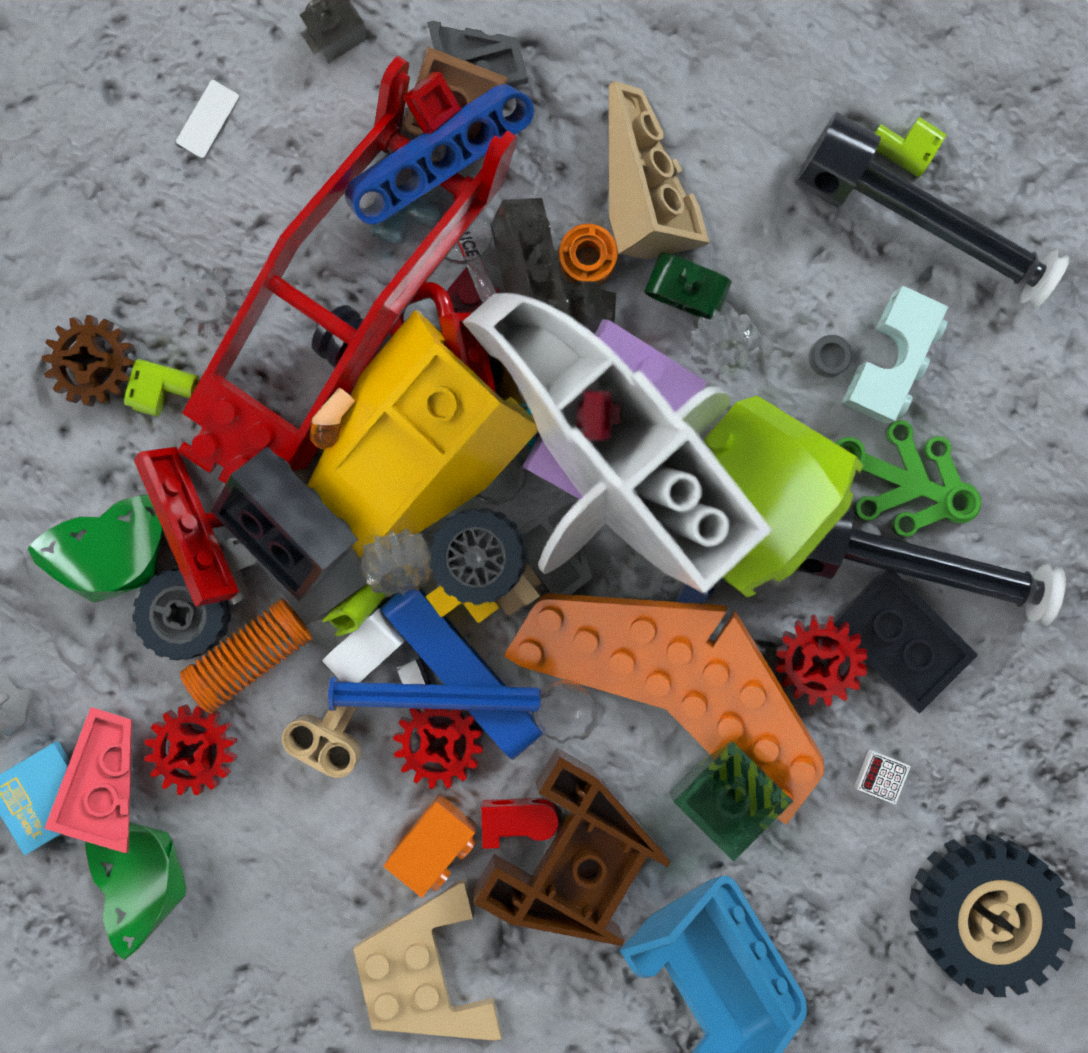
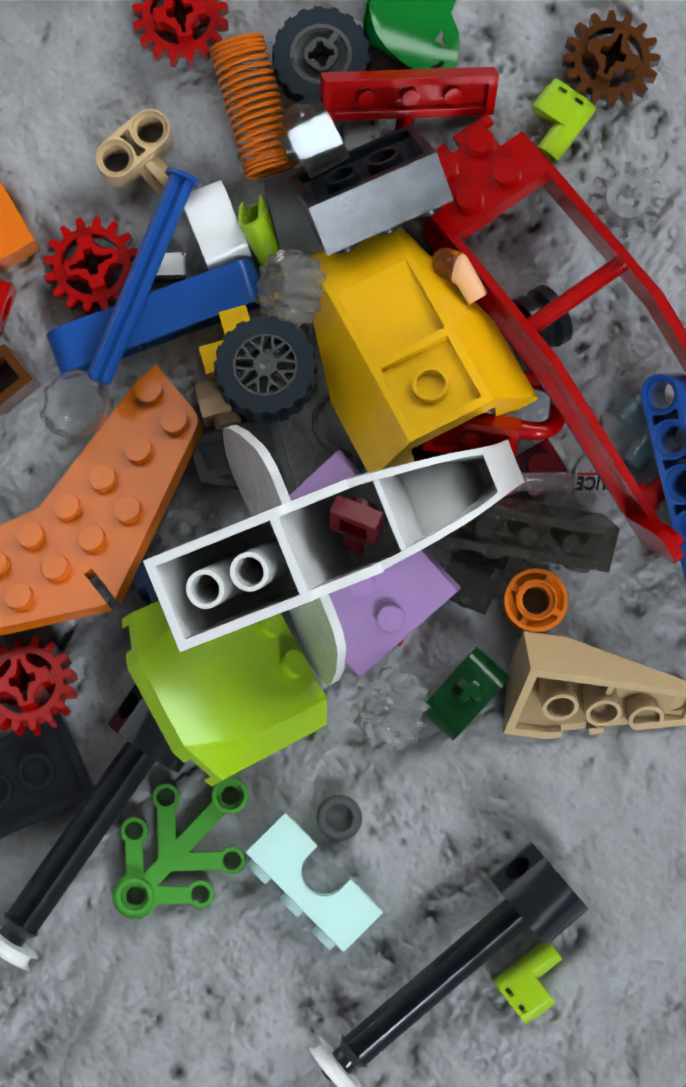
camera: 105 degrees right, 5 degrees down
(256, 592) = (312, 137): none -> clear smoke brick

